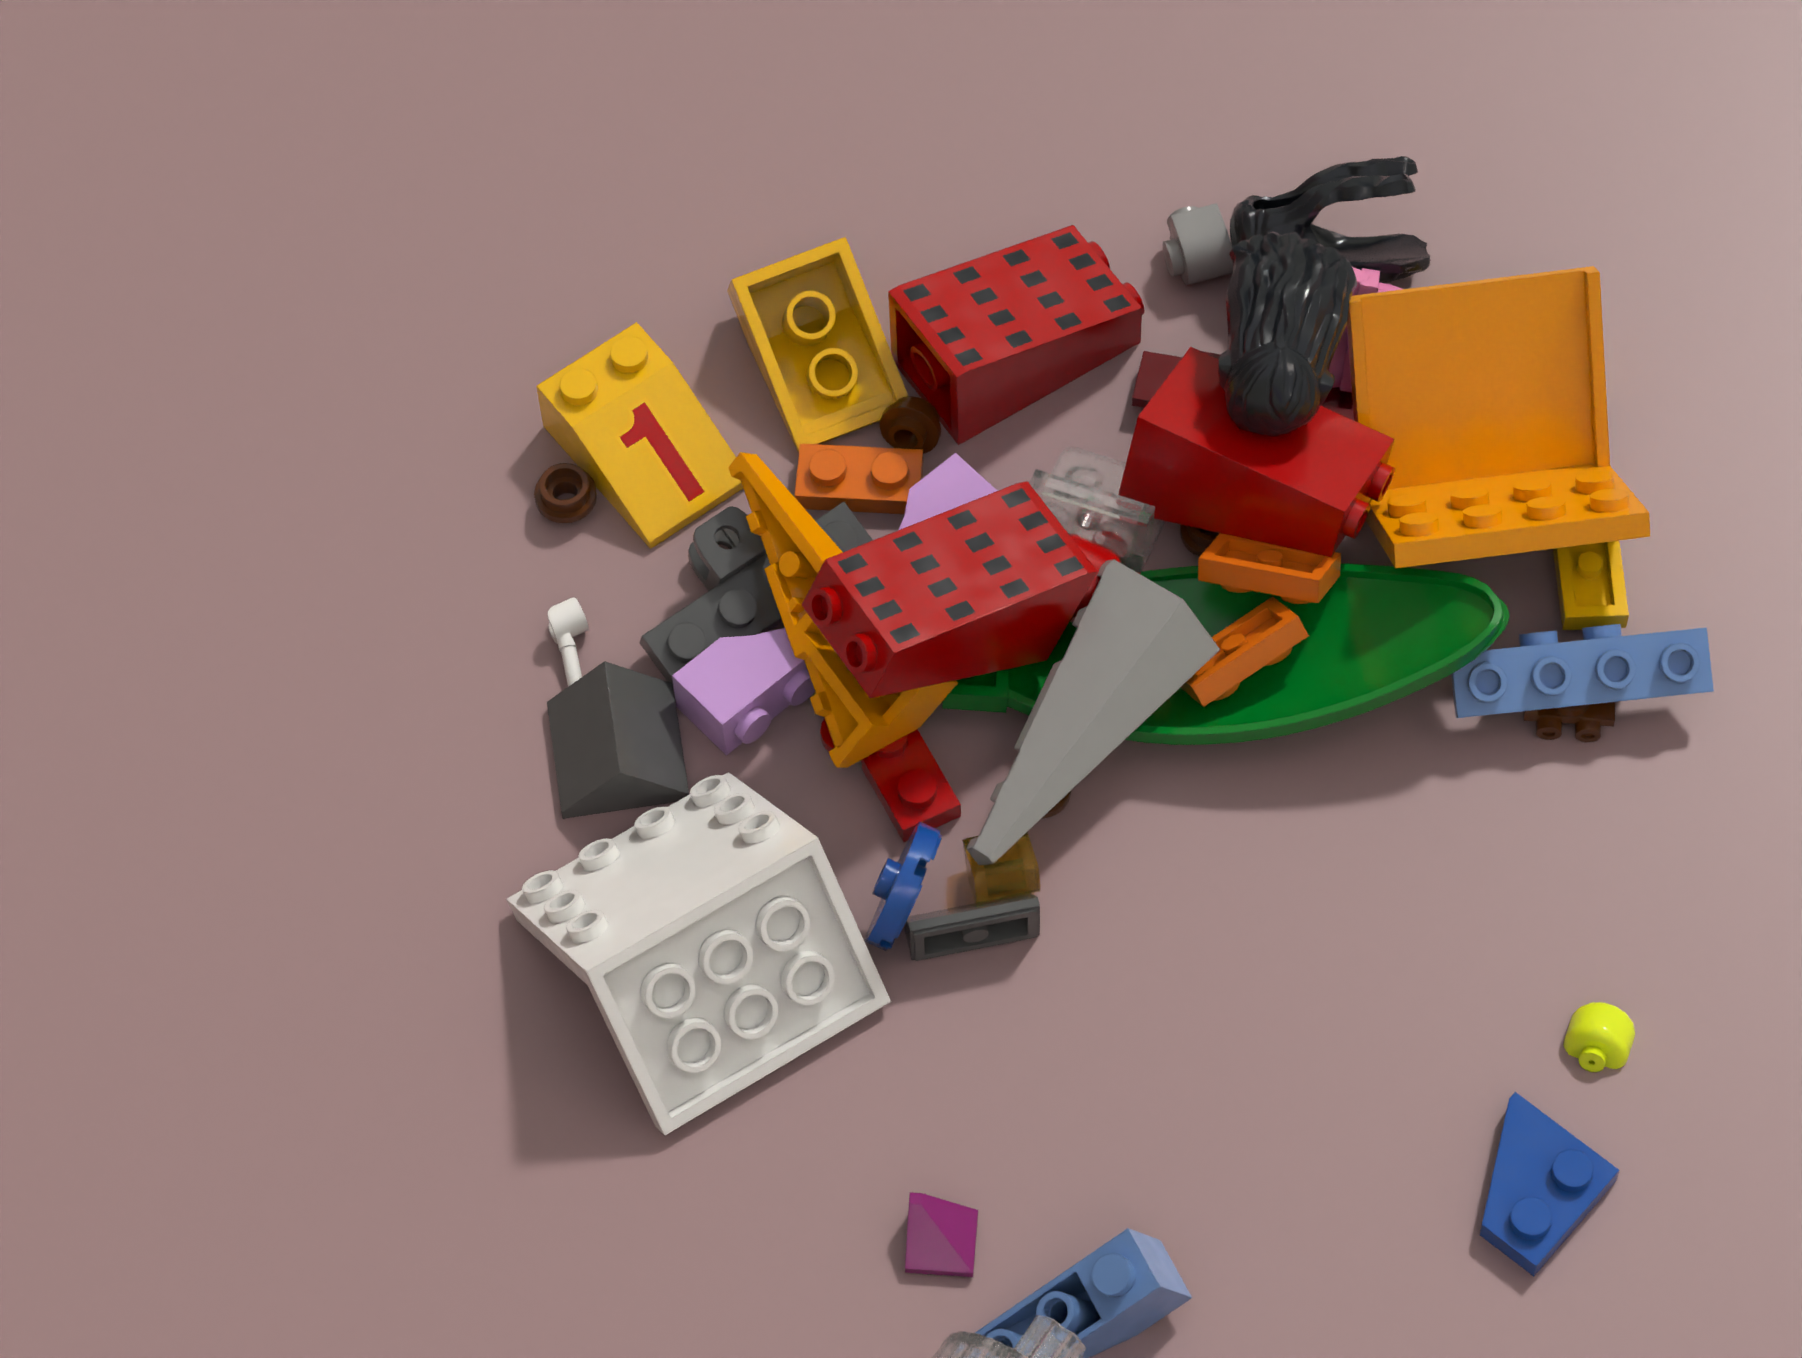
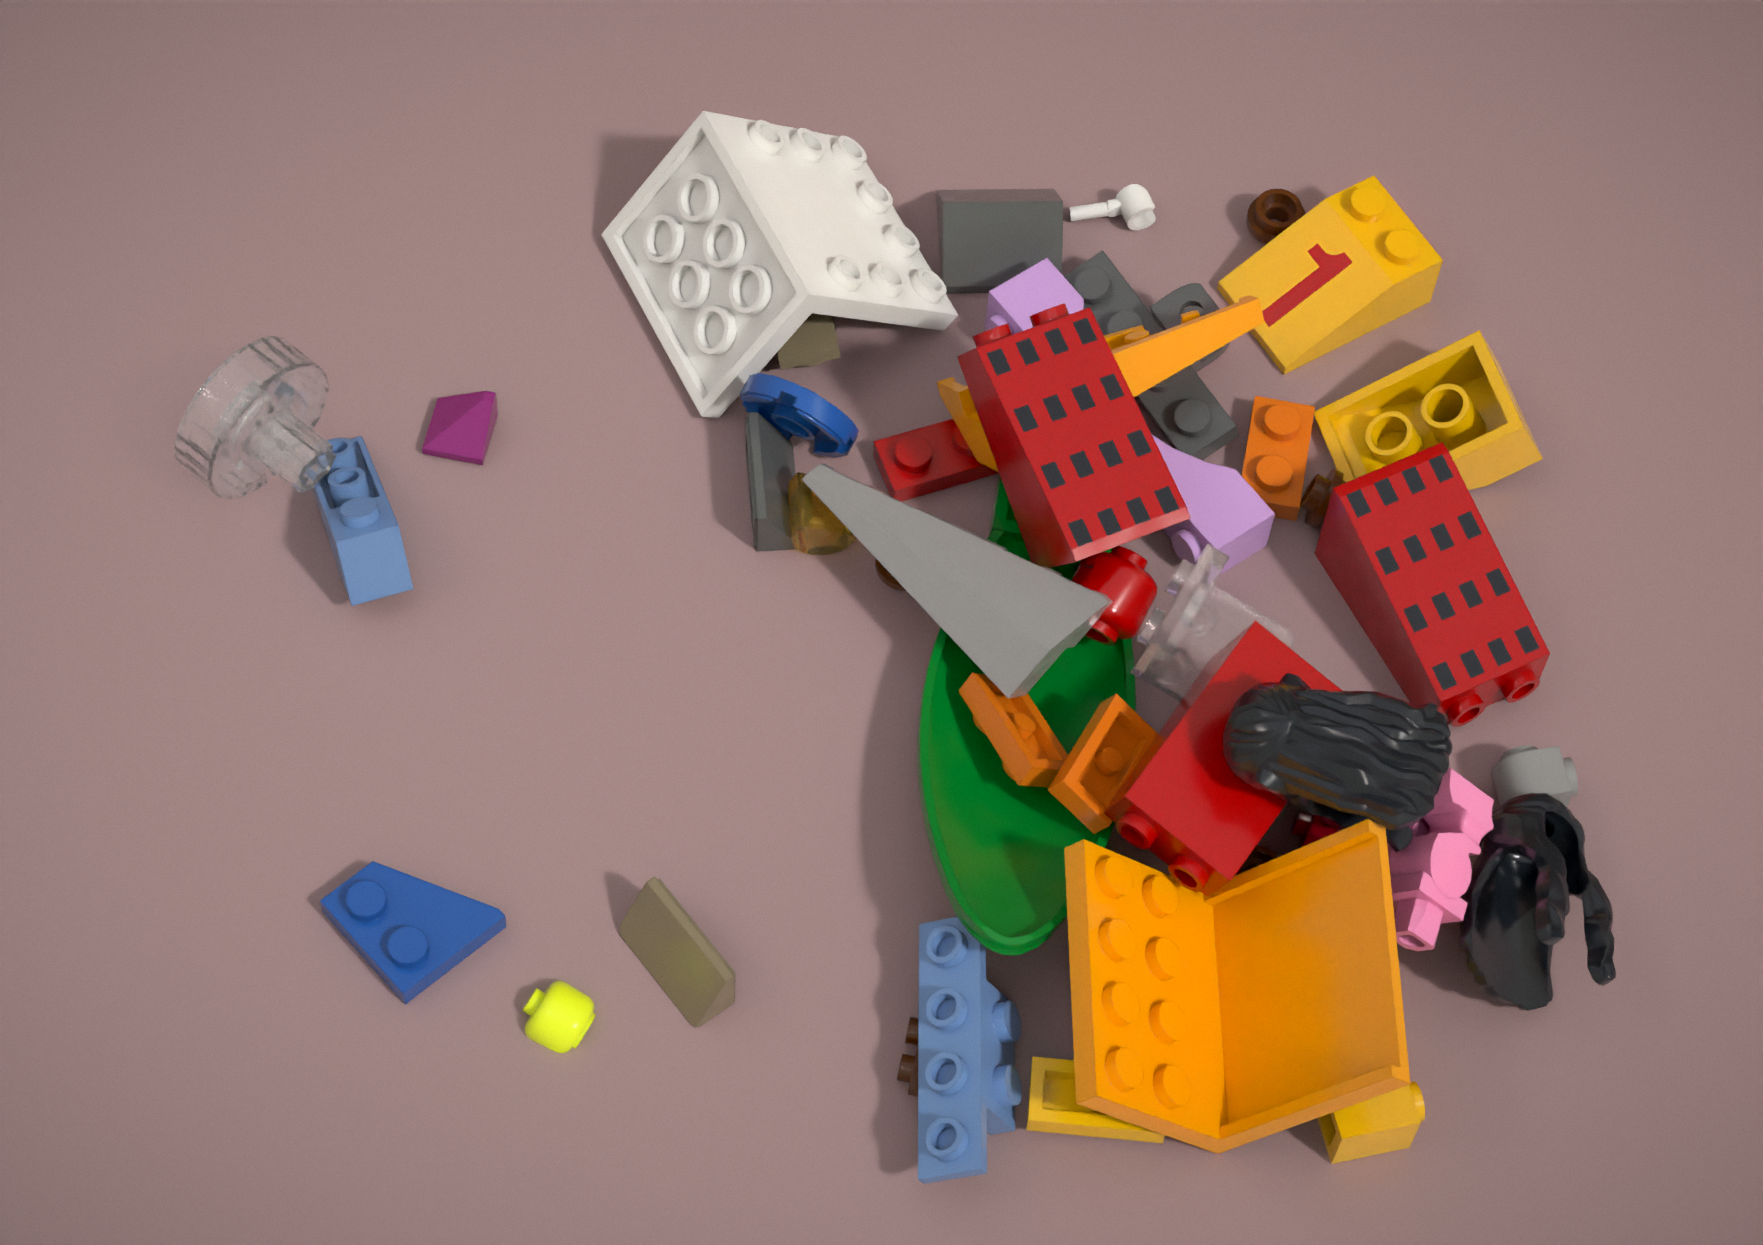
camera: 90 degrees right, 0 degrees up
(1521, 932) = (678, 954): none -> dark tan slope

